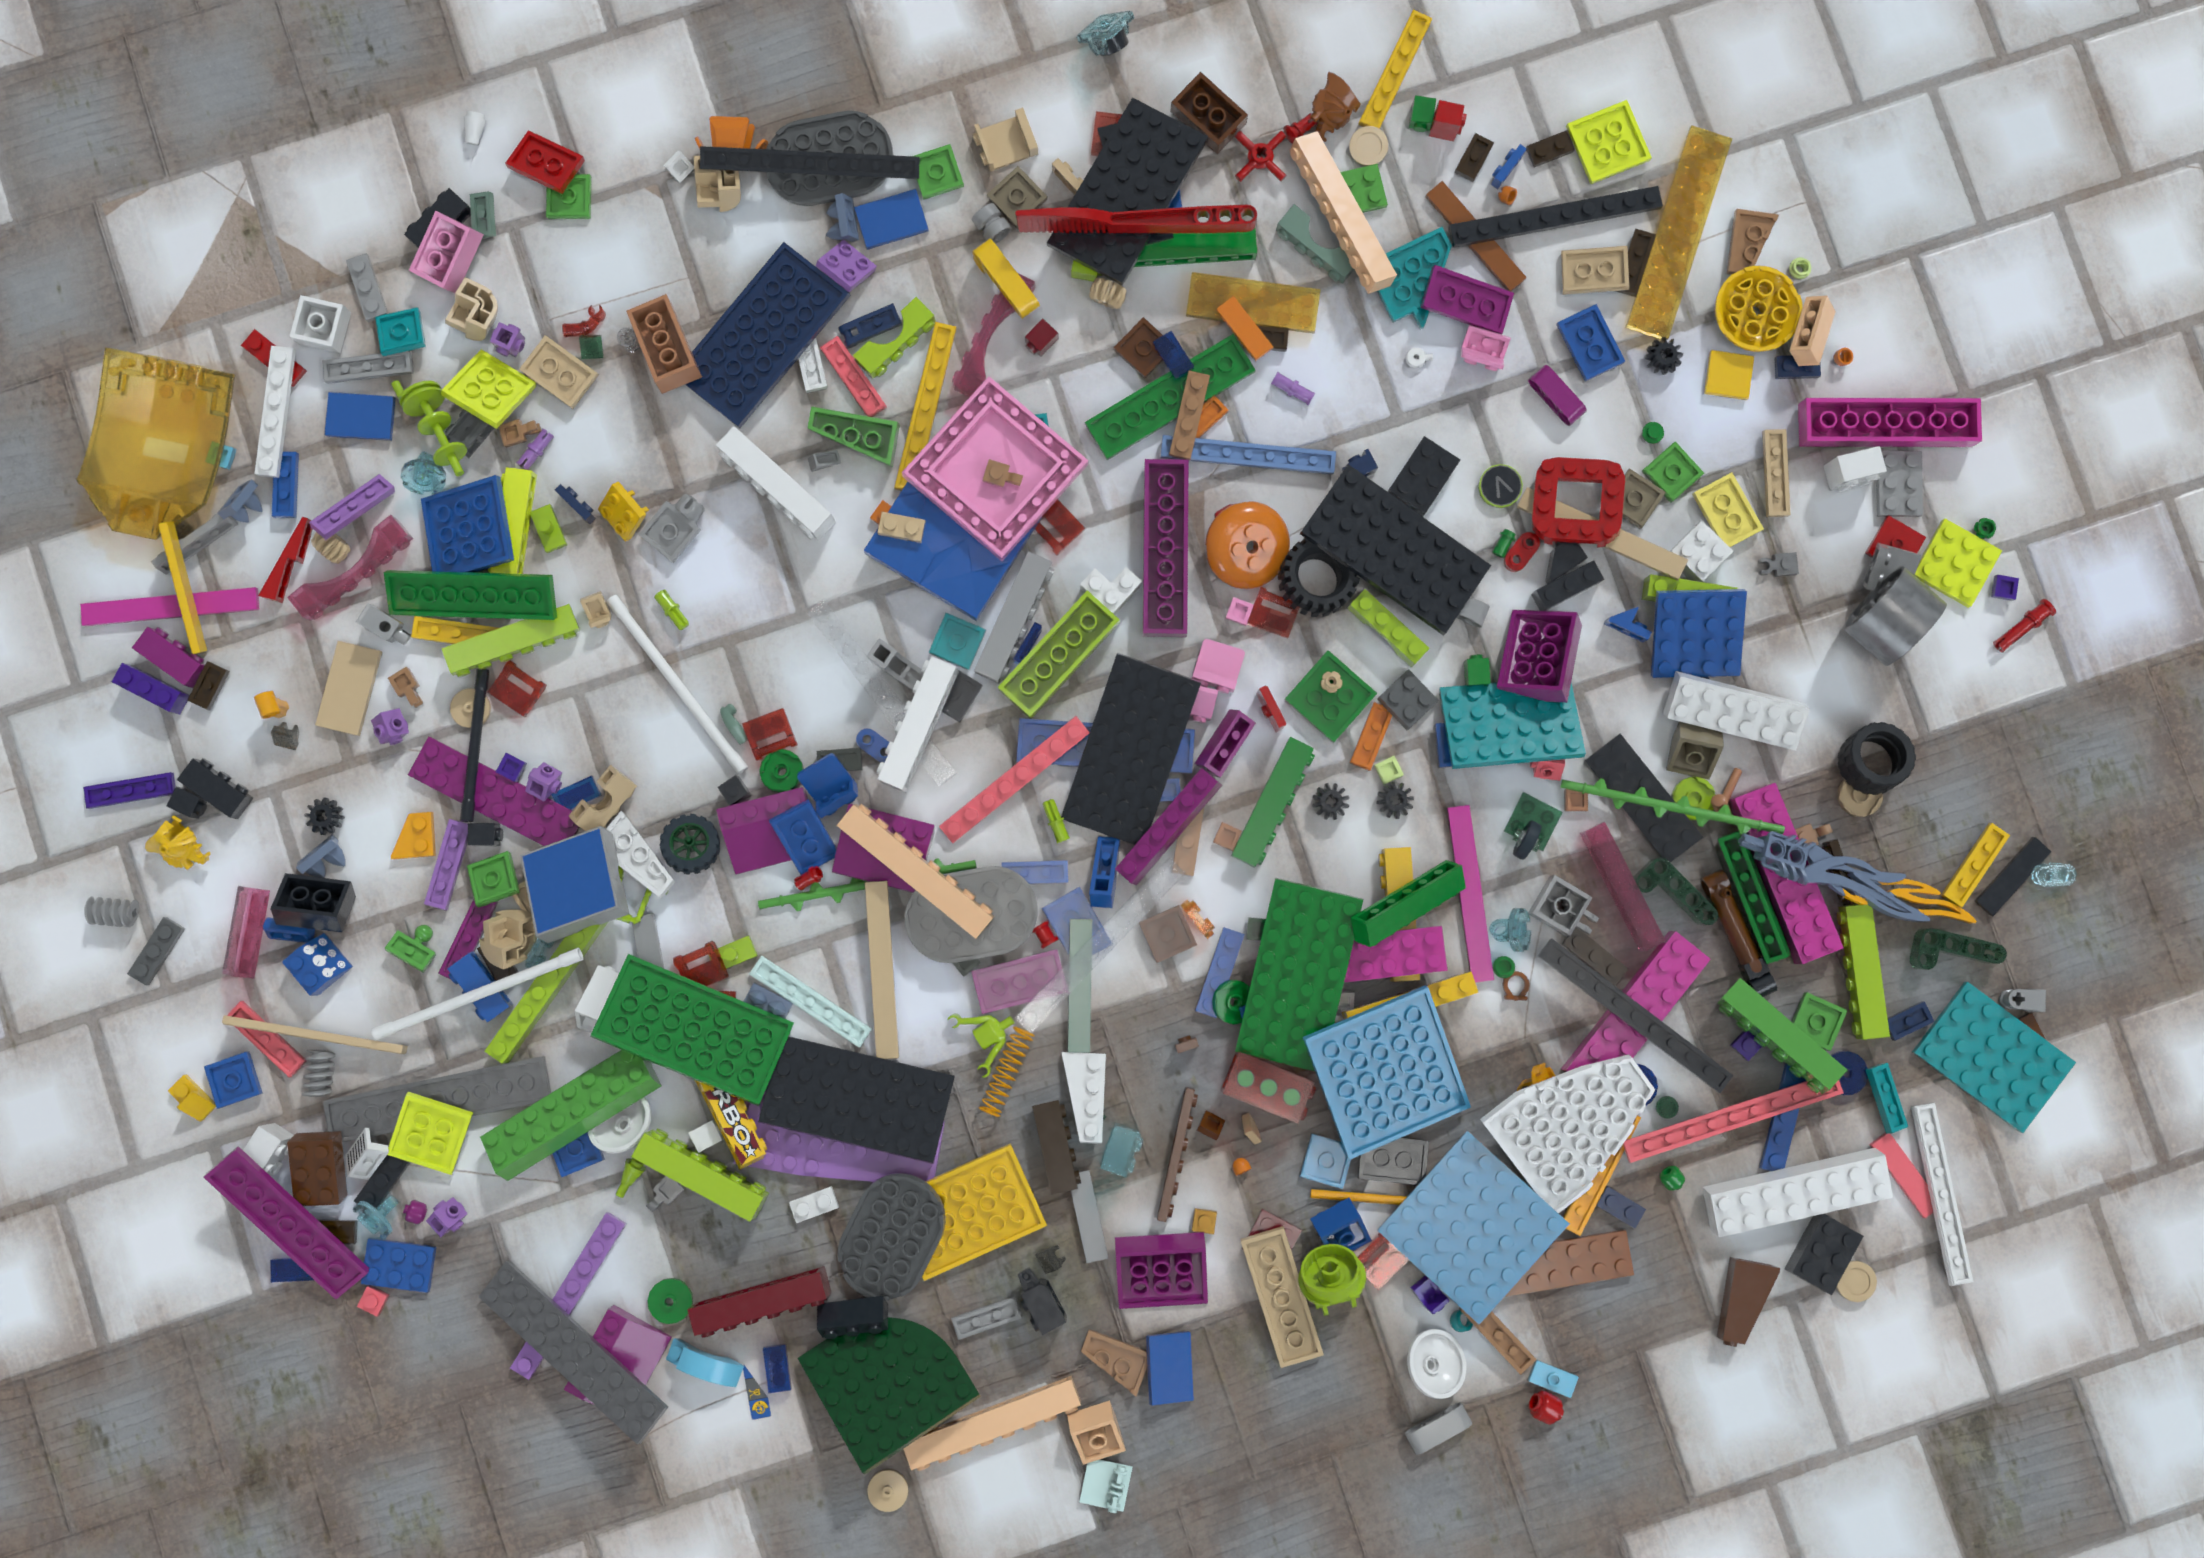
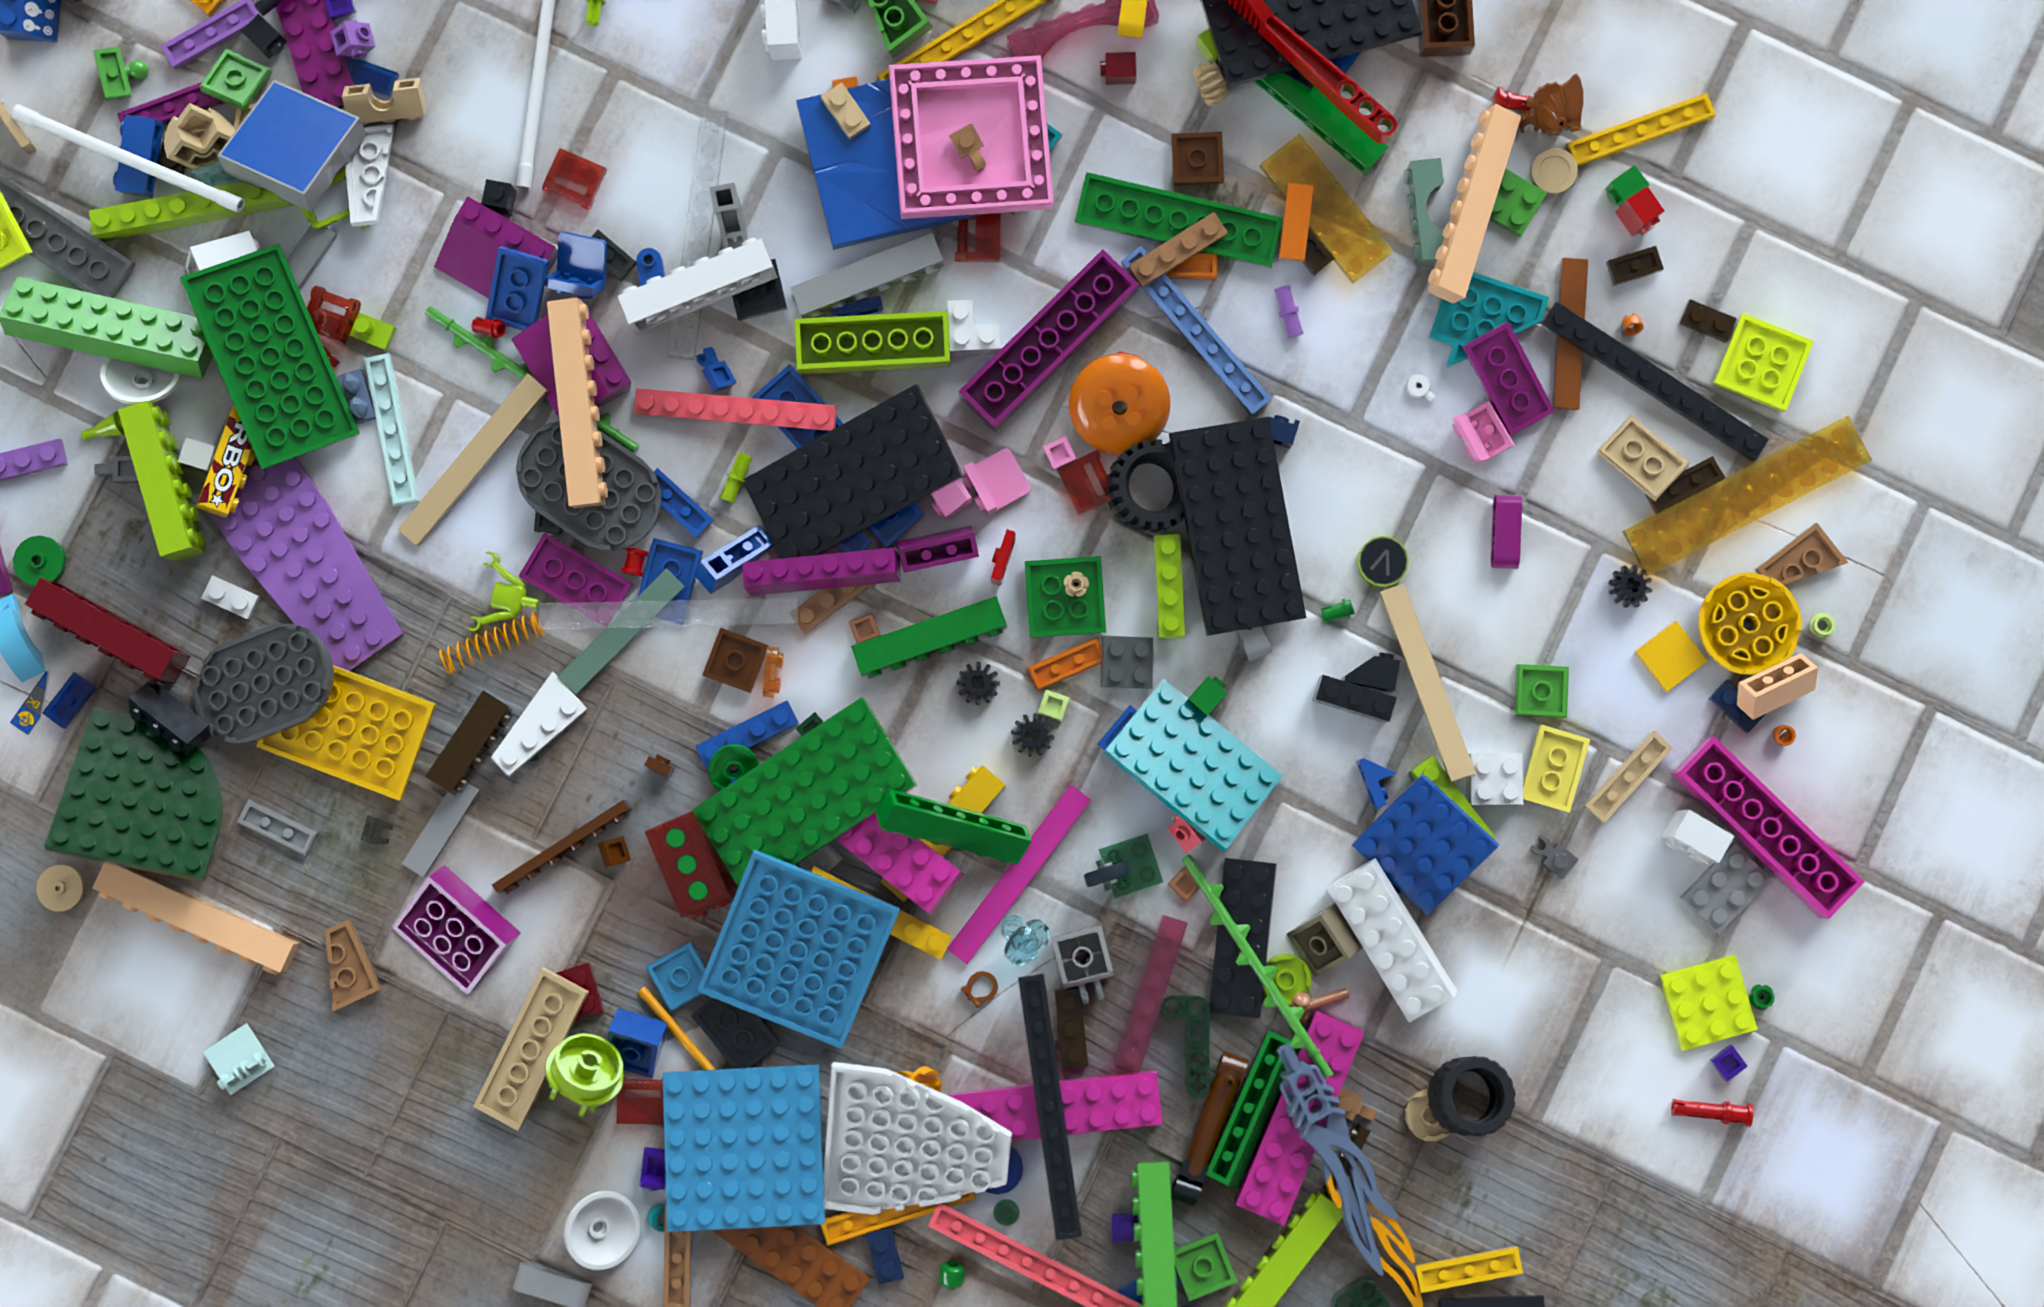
camera: 45 degrees right, 0 degrees up
(577, 1155) = (80, 369): blue plate -> none
(682, 824) = (431, 184): black wheel -> none
(732, 724) = (551, 141): sand green arm -> none
(773, 764) = (552, 207): green plate -> none
(857, 1099) = (348, 546): black plate -> none
(957, 641) = (802, 251): teal plate -> none
(979, 768) = (716, 373): none -> blue plate
(1041, 1301) = (331, 857): black hinge -> none
(1096, 1432) = (271, 1008): light nougat slope -> none
(1121, 1149) = (519, 797): clear light blue piece -> none
(1169, 1368) = (383, 1015): blue tile -> none
(1173, 355) = (1214, 187): clear blue tile -> none
(1204, 1221) = (531, 925): pearl gold plate -> none
(1241, 1166) = (605, 910): orange hinge -> none
(1250, 1129) = (644, 887): tan tile -> none
(1260, 163) = (1460, 87): red bar -> none
(1424, 476) = (1323, 490): black brick -> none
(1503, 967) = (985, 961): green plate -> none
(1512, 158) = (1666, 298): blue plate -> none
(1522, 551) = (1346, 632): red plate -> none
(1540, 654) = (1273, 732): magenta slope -> none
(1578, 530) = (1406, 658): red plate -> none
(1590, 342) = (1578, 515): blue plate -> none
(1639, 498) = (1486, 681): dark tan plate -> none
(1652, 432) = (1556, 641): green plate -> none
(1887, 560) = (1644, 952): light grey bracket -> none
(1895, 616) = (1603, 991): flat silver wheel -> none
(1896, 535) = (1670, 936): red plate -> none

